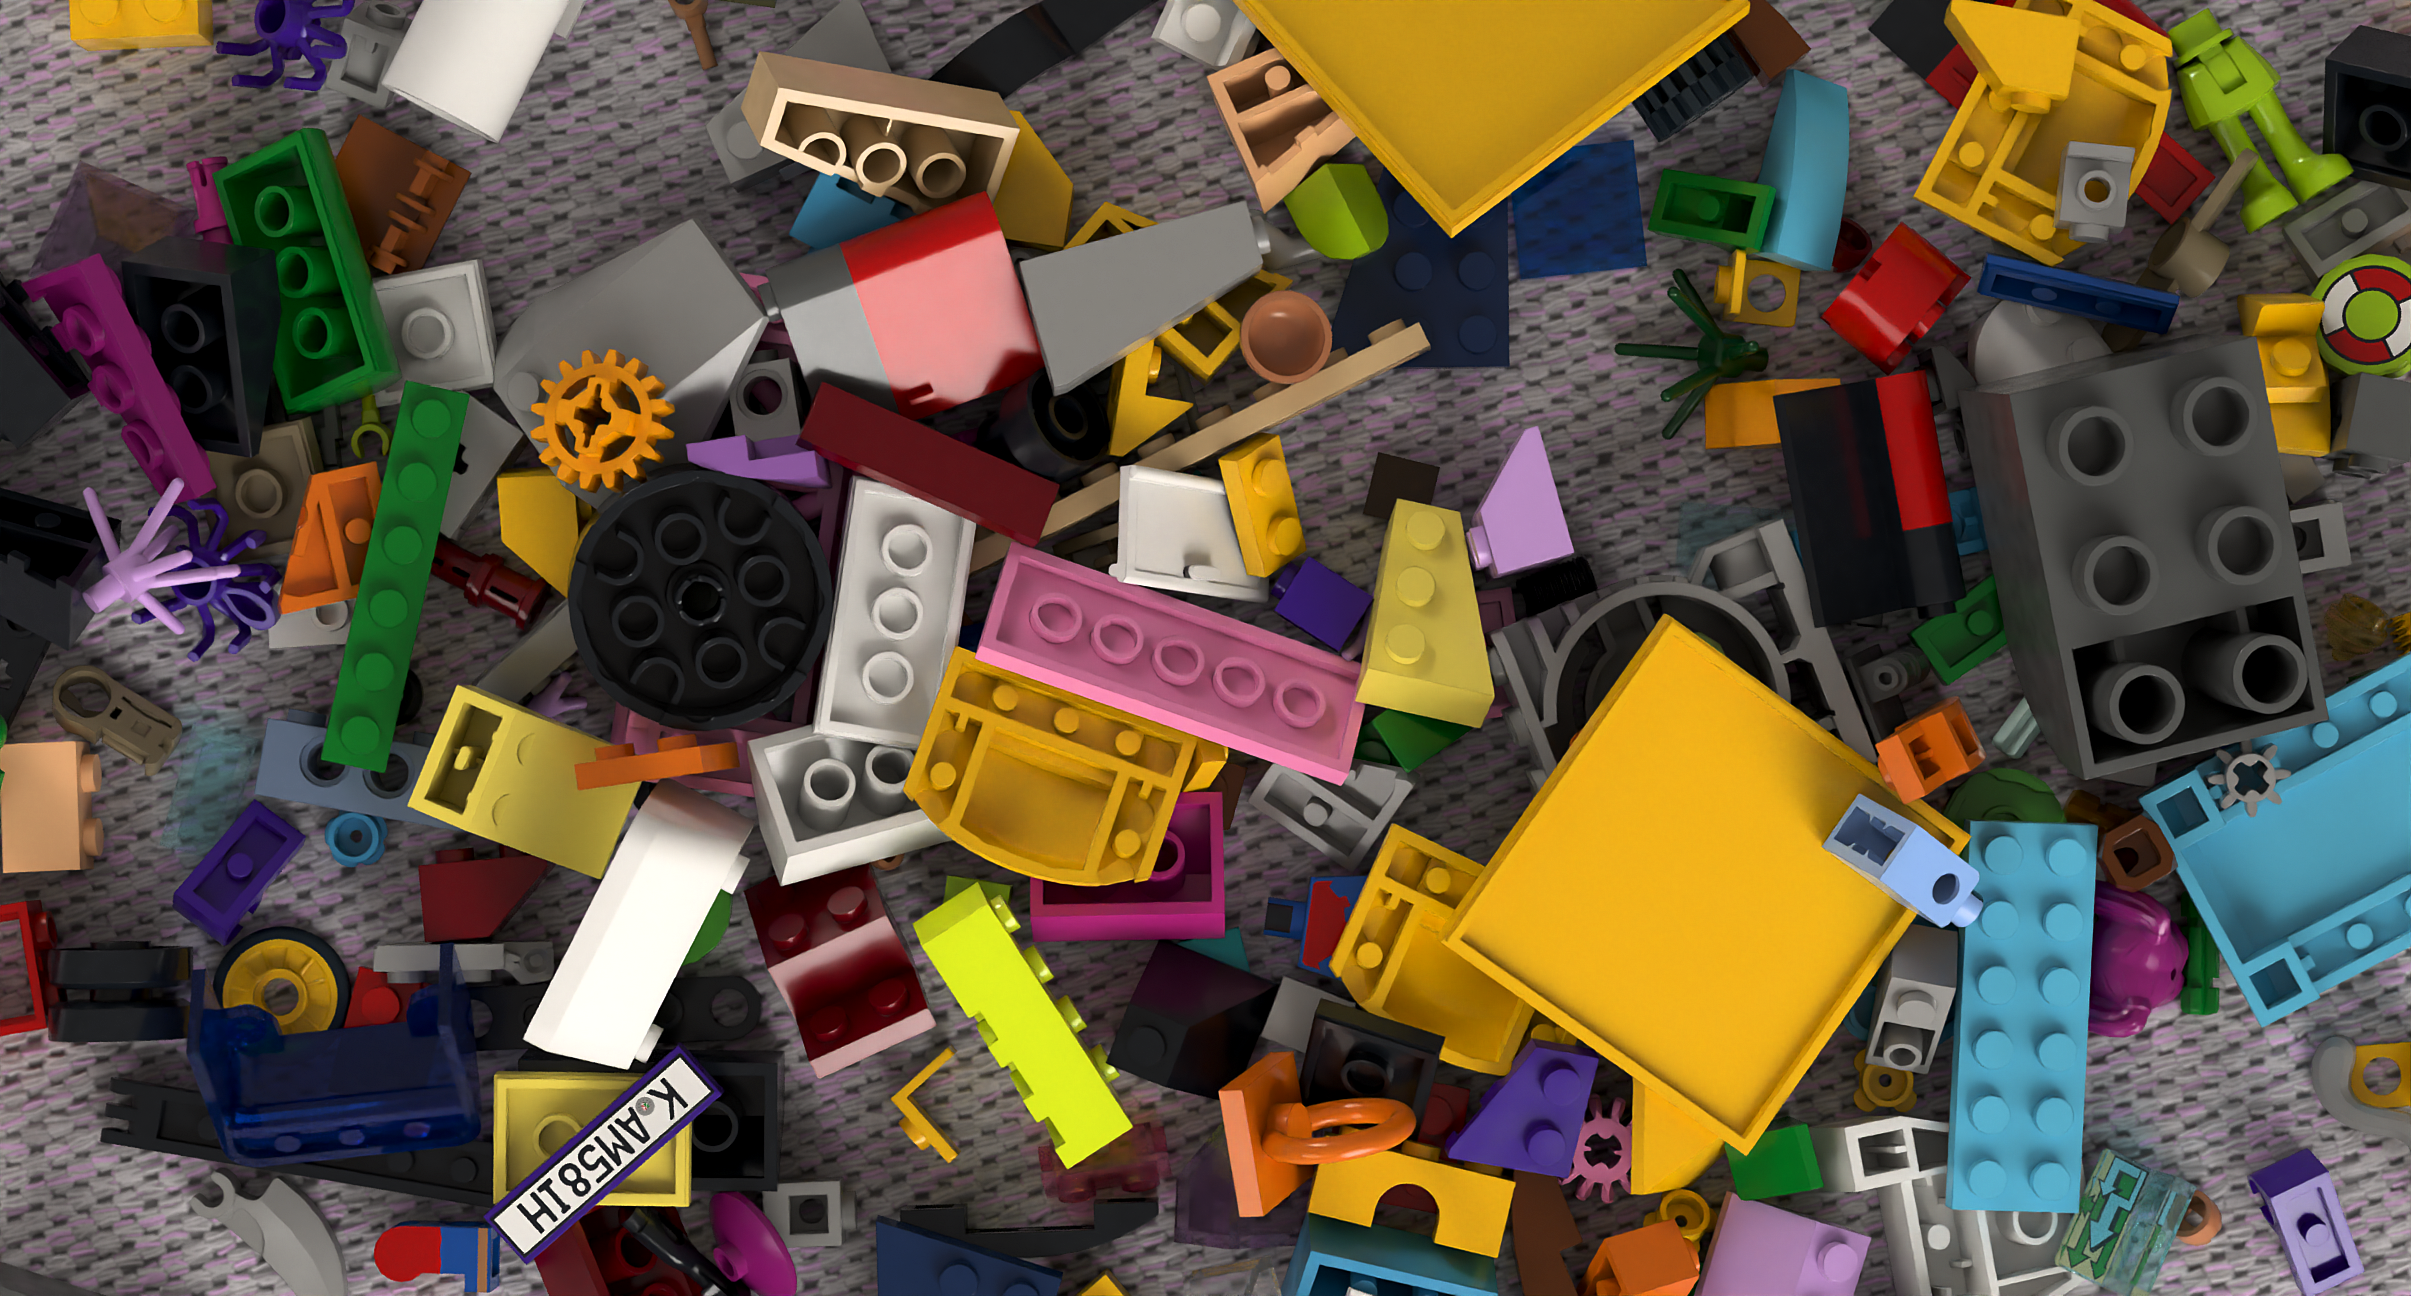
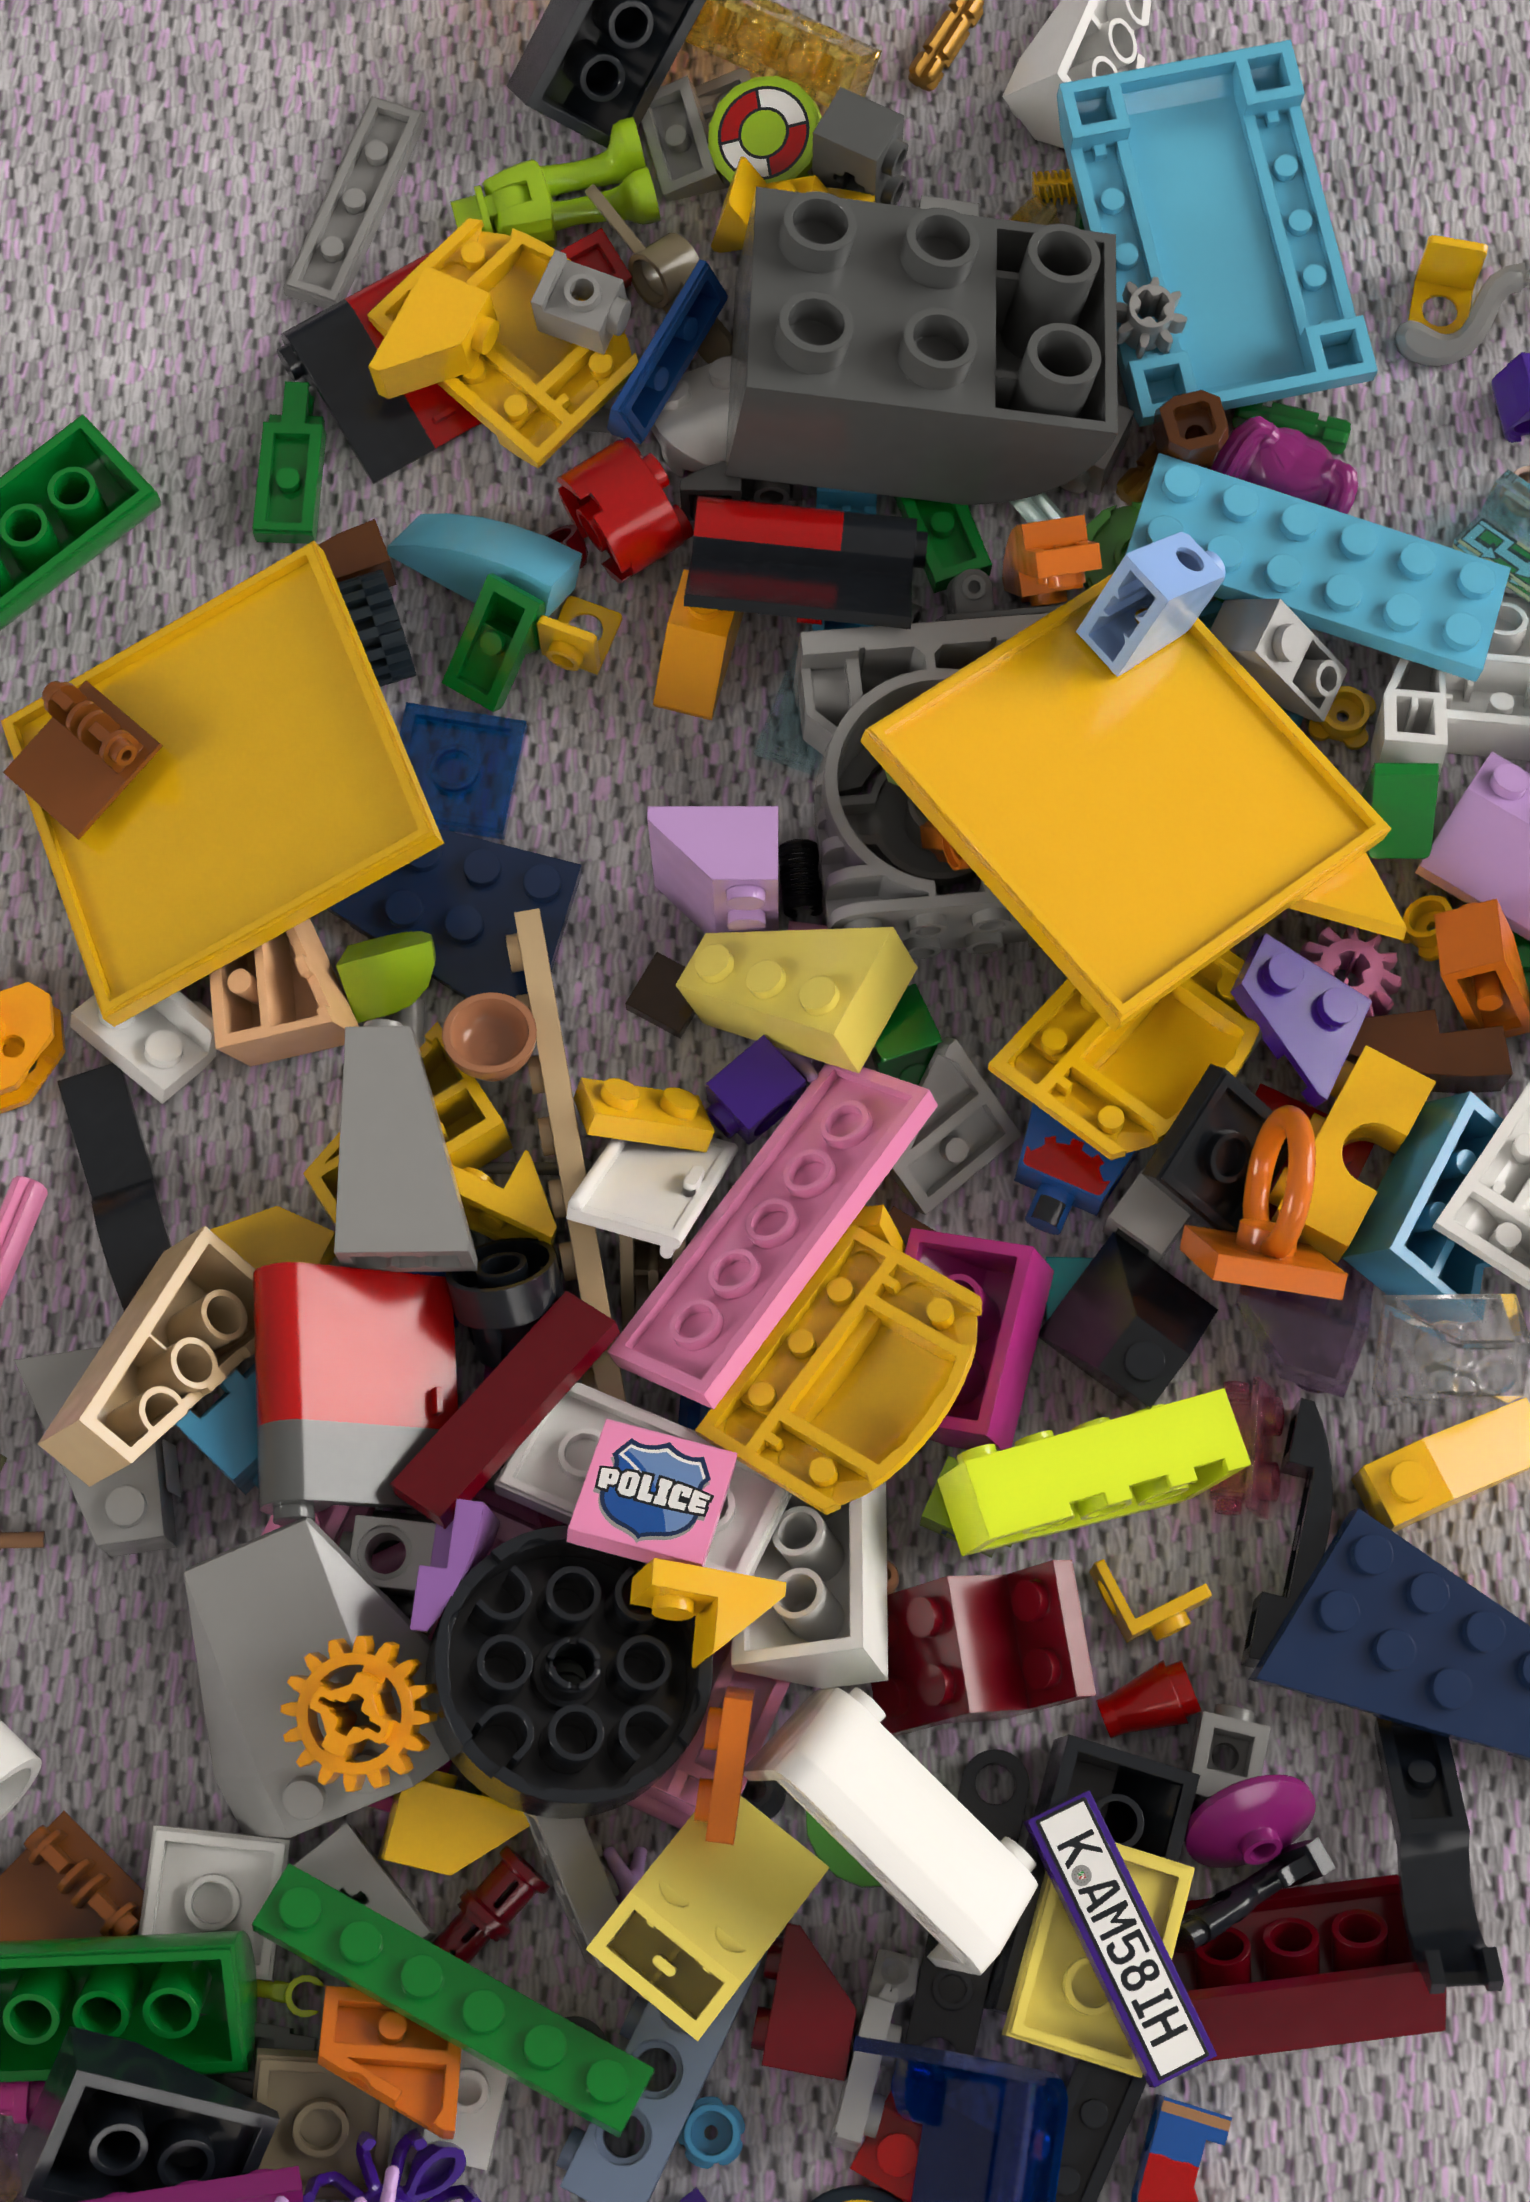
camera: 75 degrees left, 15 degrees down
(786, 721) = (718, 1599): none -> yellow slope
(843, 1131) = (1150, 1701): none -> red cone
(873, 626) = (651, 1496): none -> tile
(1716, 355) = (626, 680): dark green plant -> none

